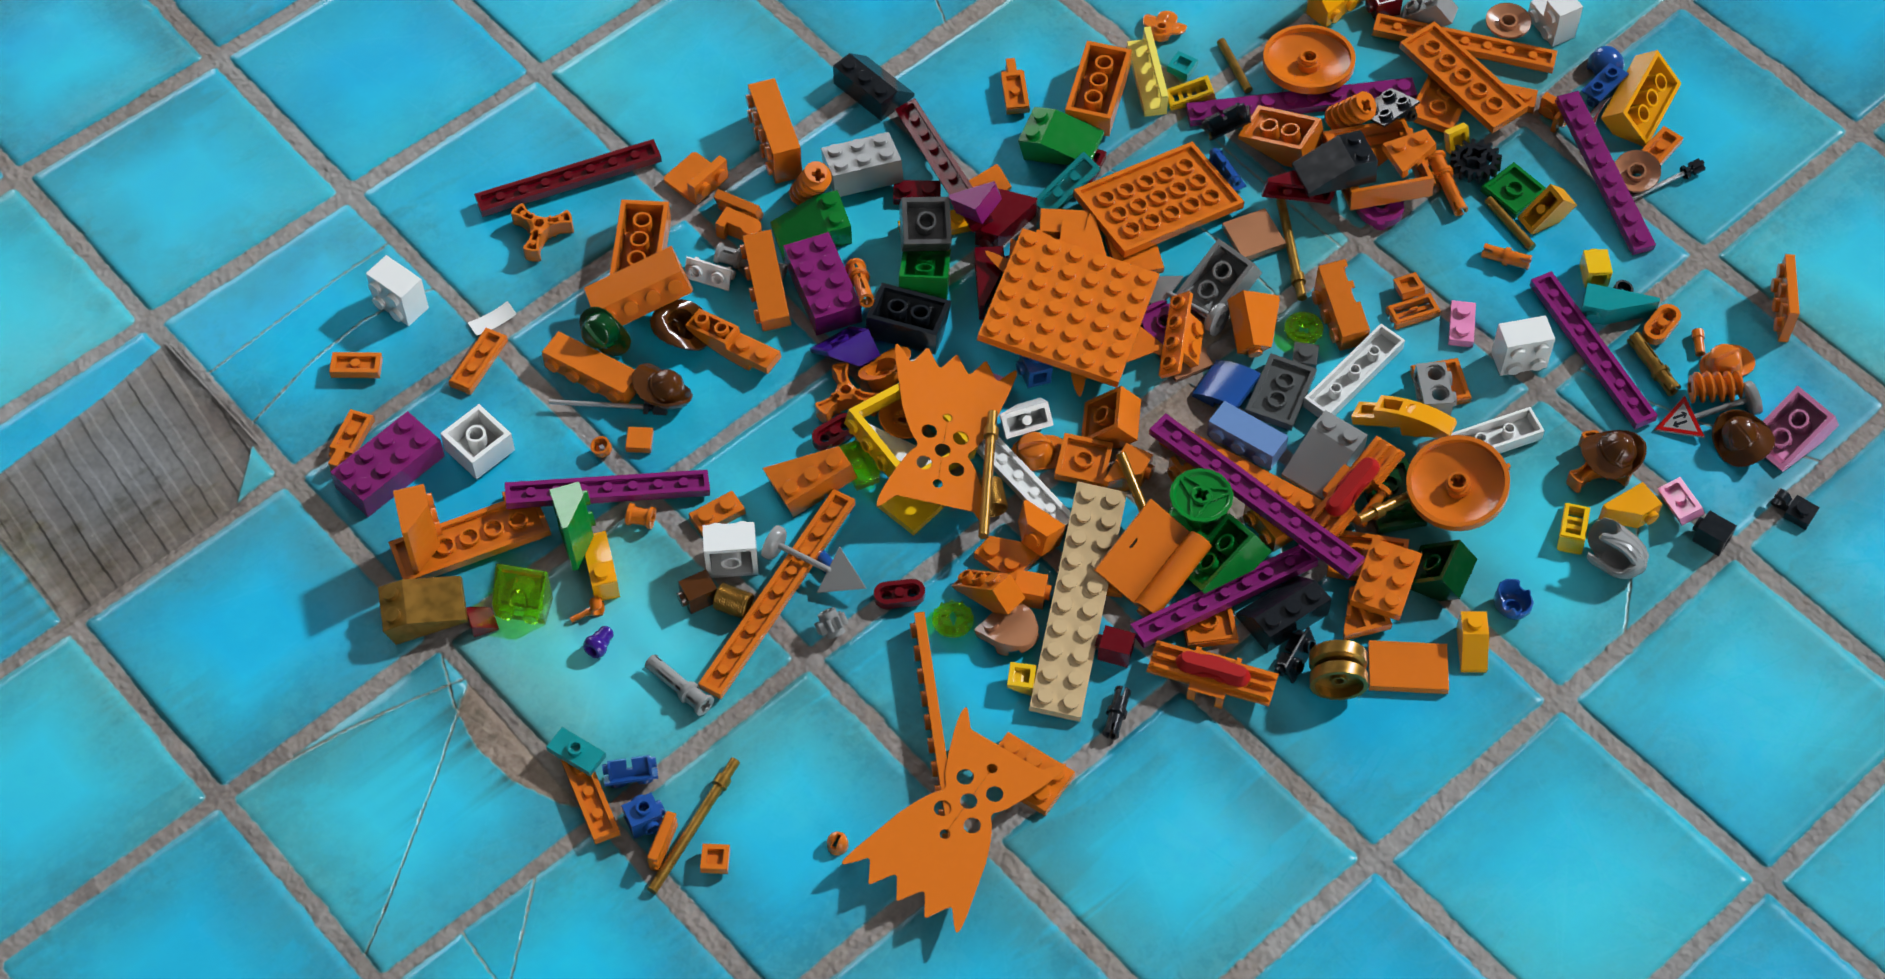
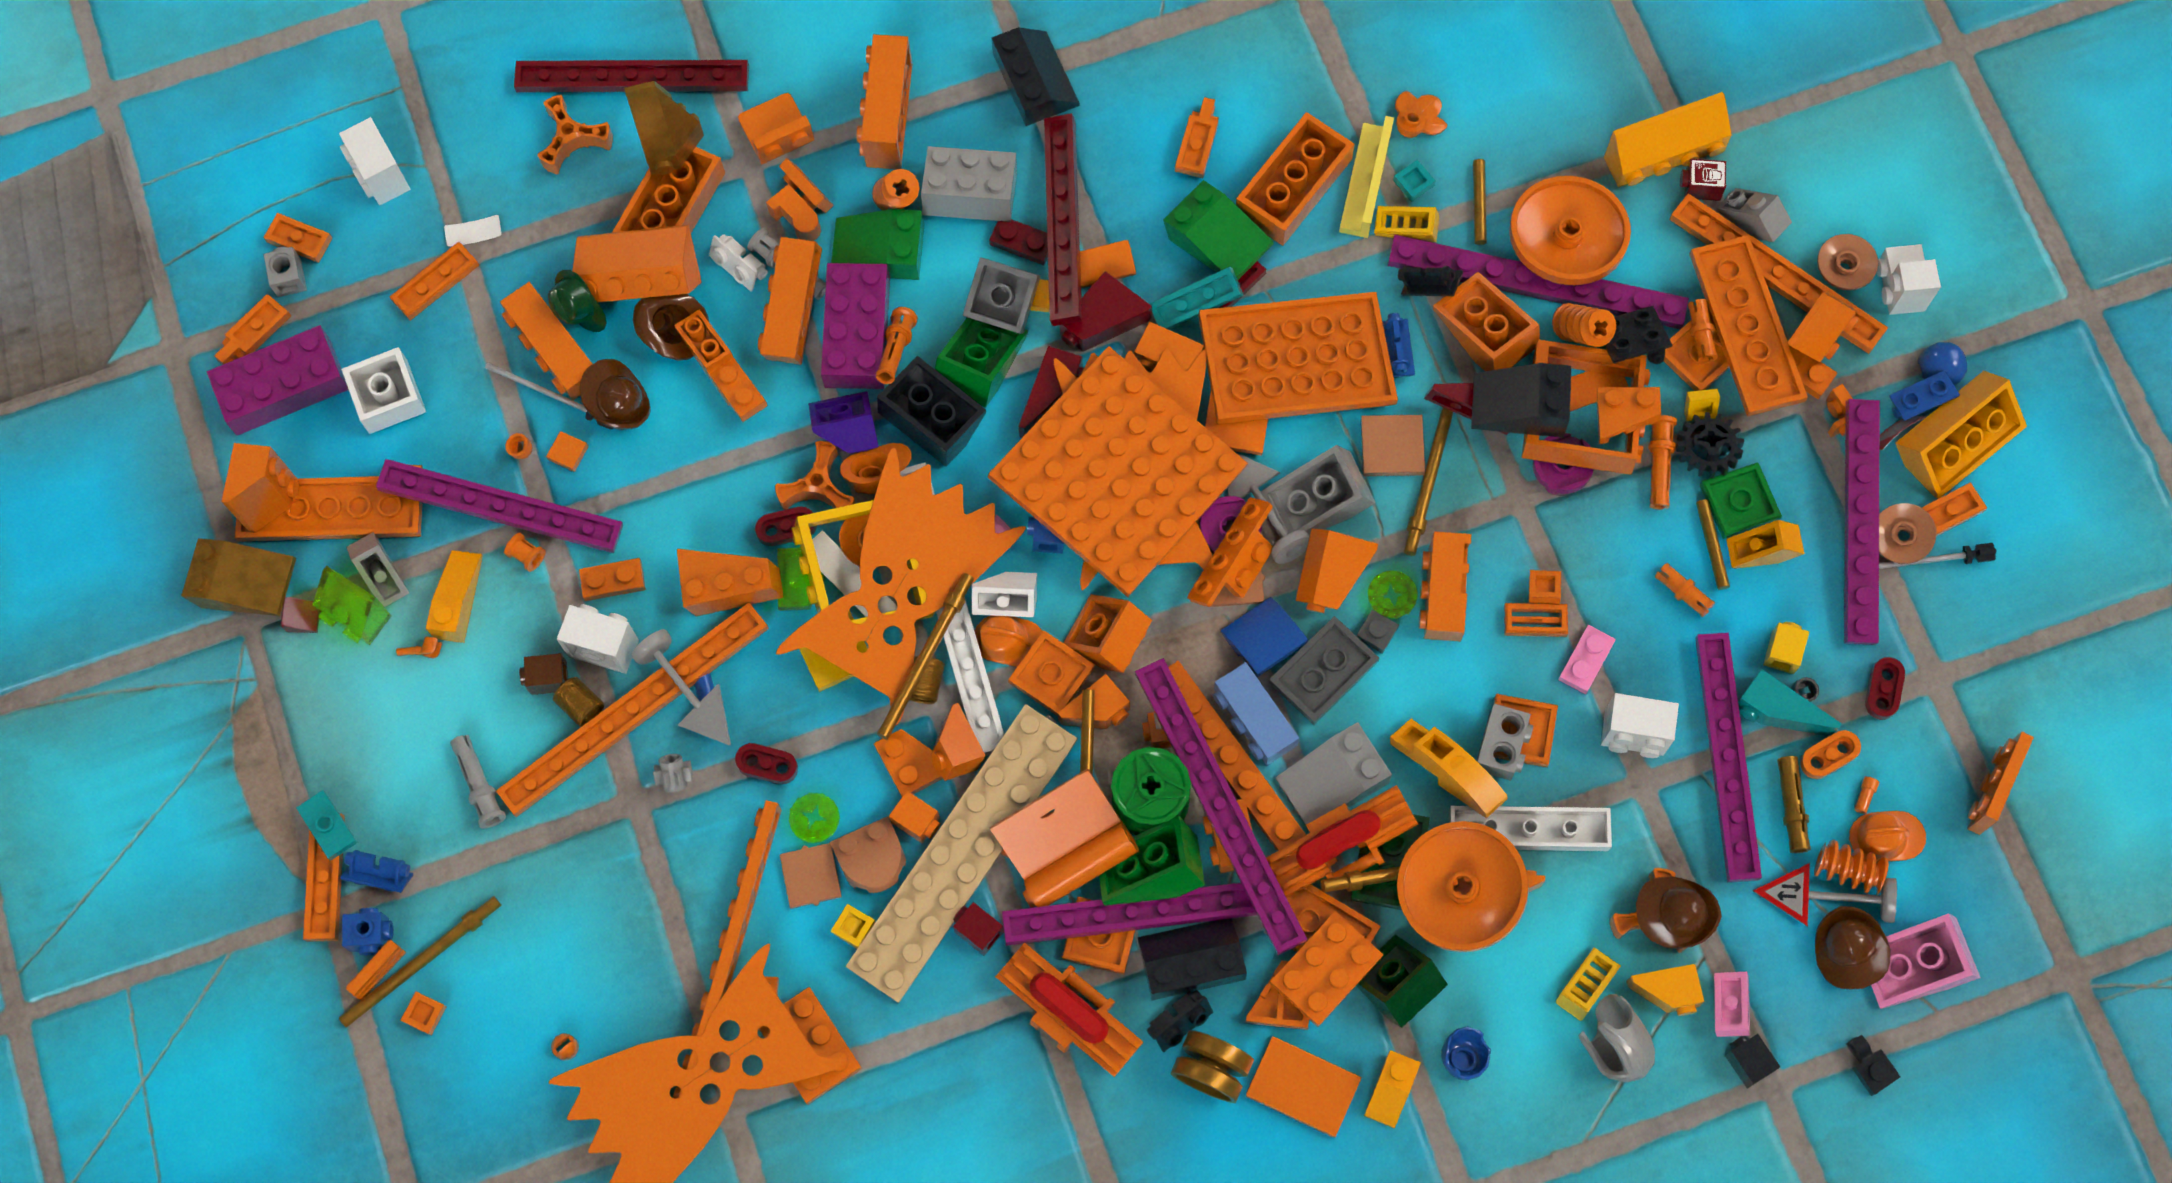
camera: 25 degrees right, 15 degrees up
(361, 397) = (287, 282): none -> light grey brick
(525, 555) = (377, 569): none -> light grey slope
(573, 520) = (436, 541): green slope -> none
(597, 643) = (413, 693): dark purple piece -> none
(622, 184) = (663, 126): none -> pearl gold wedge
(969, 659) = (810, 875): none -> nougat piece
(976, 202) = (1068, 294): magenta slope -> none
(990, 589) = (863, 803): orange slope -> none
(1116, 712) = (942, 1011): black pin -> none
(1354, 372) = (1422, 678): white piece -> none
(1434, 90) = (1702, 330): none -> orange pin
(1515, 59) = (1823, 327): none -> orange slope
(1676, 276) = (1885, 690): none -> dark red plate

